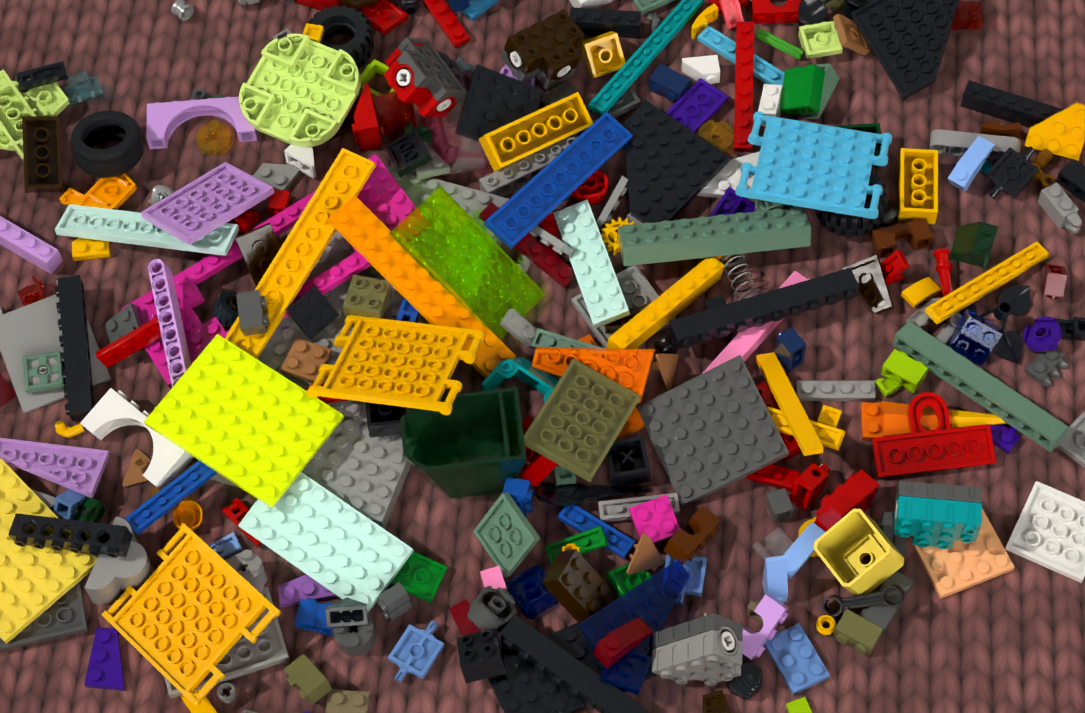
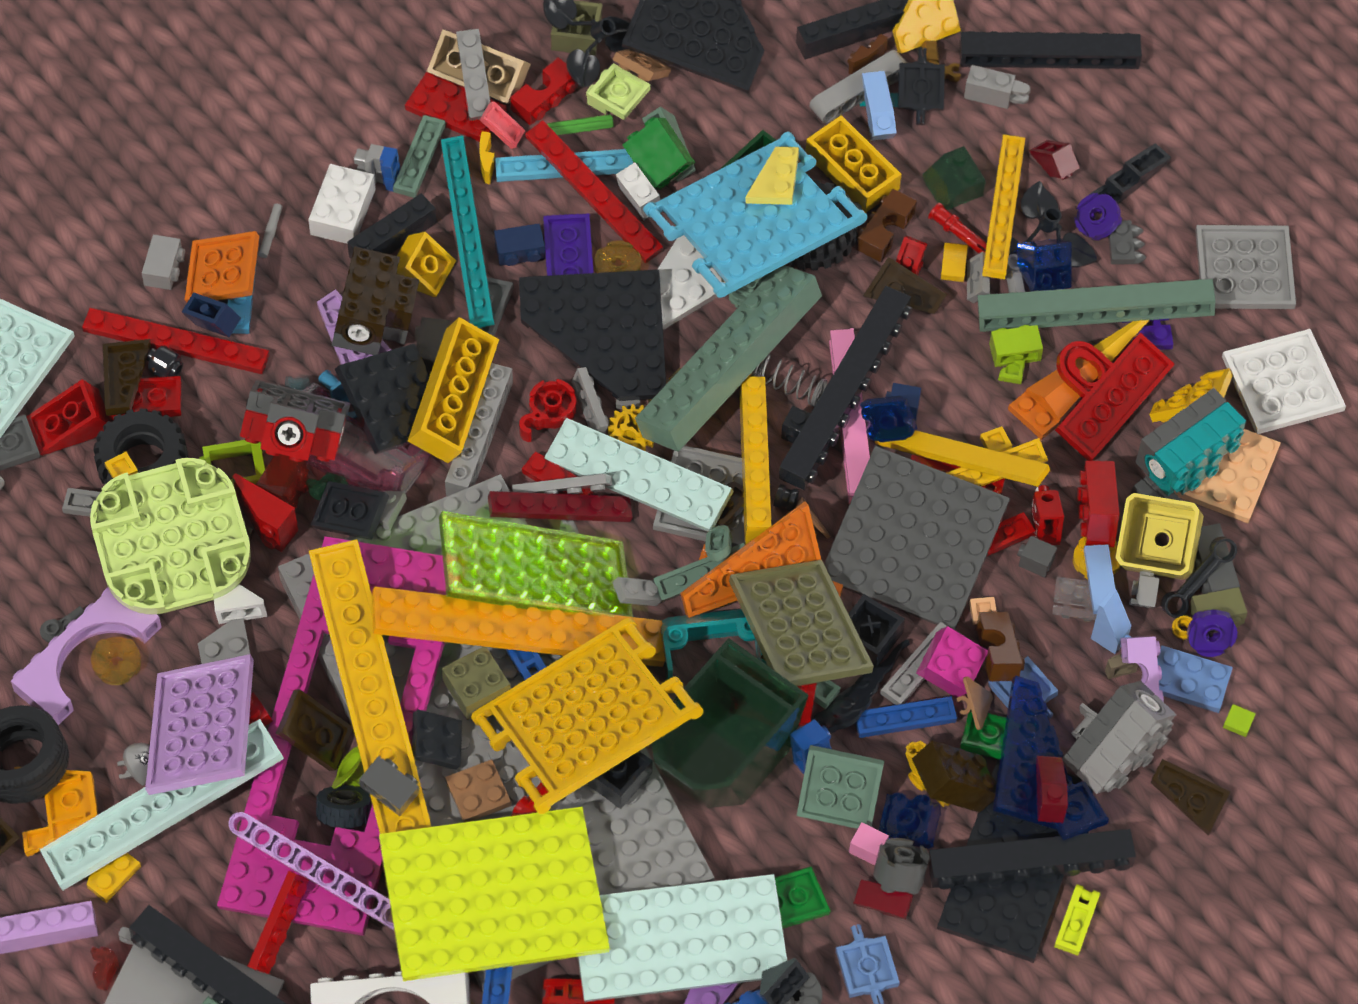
camera: 50 degrees left, 0 degrees up
(123, 323) = (244, 918): dark grey plate -> none
(279, 201) = (266, 669): red brick -> none
(394, 602) = (805, 938): dark grey brick -> none
(481, 655) = (934, 914): black brick -> none
(558, 180) = (529, 419): blue plate -> none
(586, 541) = (912, 730): green tile -> none
(588, 336) = (718, 543): none -> sand green plate
(654, 18) = (439, 194): dark grey arm -> none
(702, 67) = (535, 204): white slope -> none
(713, 506) = (981, 605): none -> light nougat plate
(732, 204) = (704, 317): dark purple wing -> none
(748, 683) = (1178, 739): black hair -> none
(768, 347) = (888, 418): none -> clear blue slope
(821, 581) = (1145, 590): none -> light grey brick
(835, 390) = (976, 411): light grey plate -> none
(842, 634) = (1206, 621): none -> dark purple plate
(848, 153) = (777, 178): none -> light yellow wing
(991, 495) = (1186, 395): none -> yellow plate

